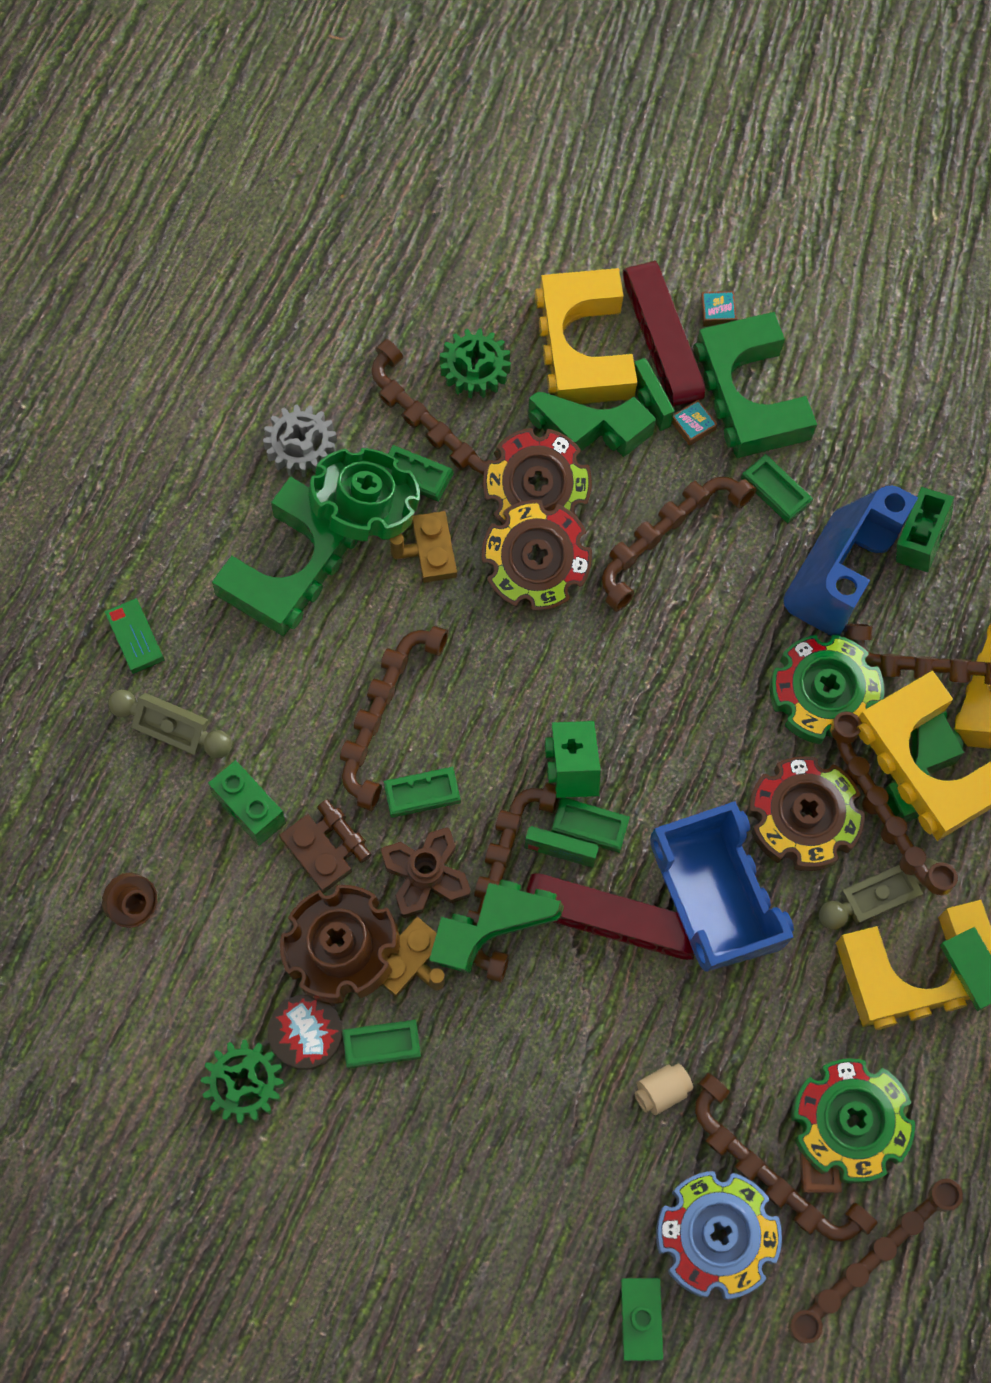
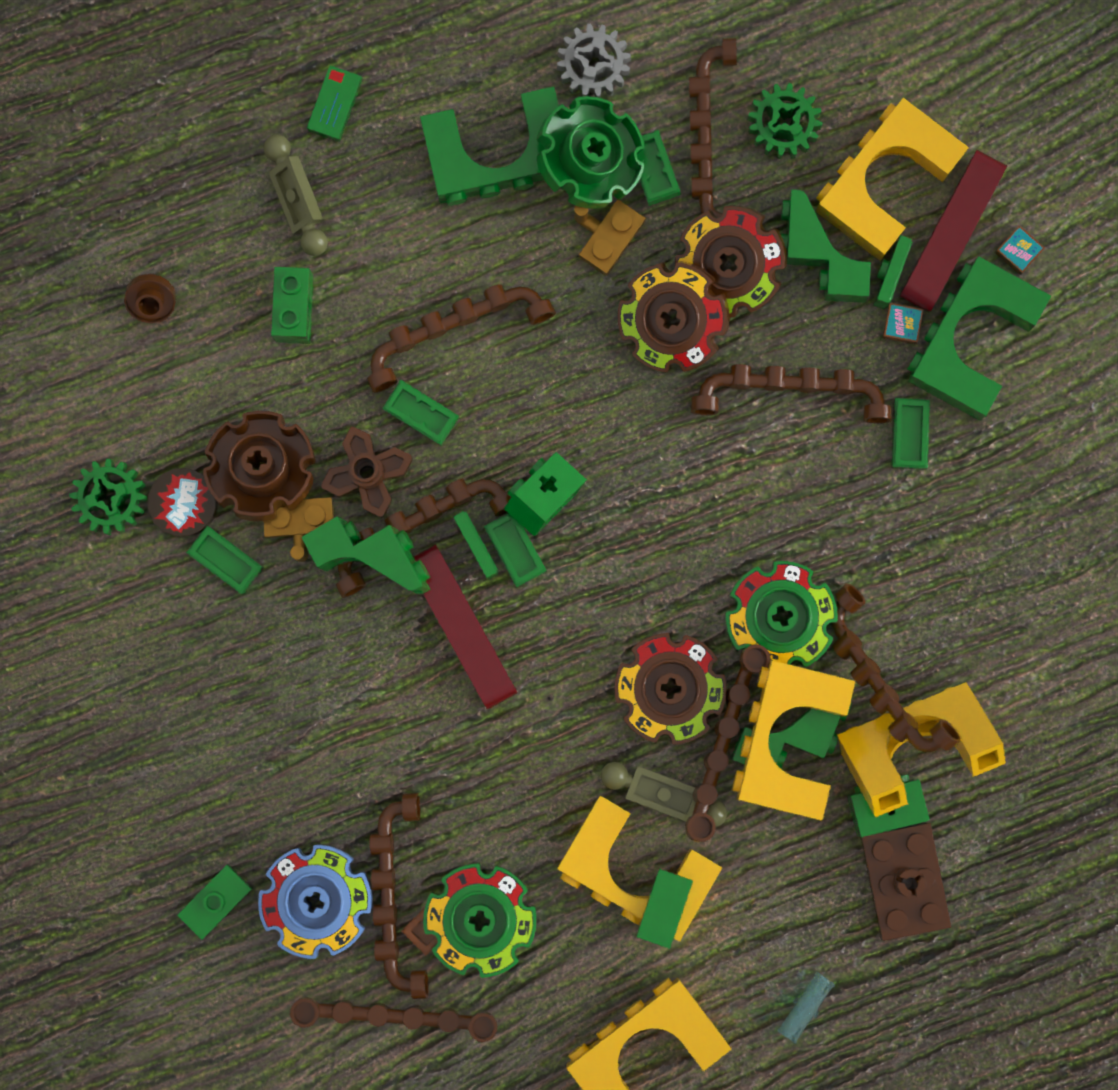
camera: 50 degrees right, 15 degrees up
(315, 851) = (309, 383): reddish brown plate -> none
(663, 1088) = (377, 774): tan brick -> none
(718, 889) = (546, 682): blue windscreen -> none
(870, 523) = (843, 537): blue windscreen -> none
(924, 529) = (980, 572): green brick -> none

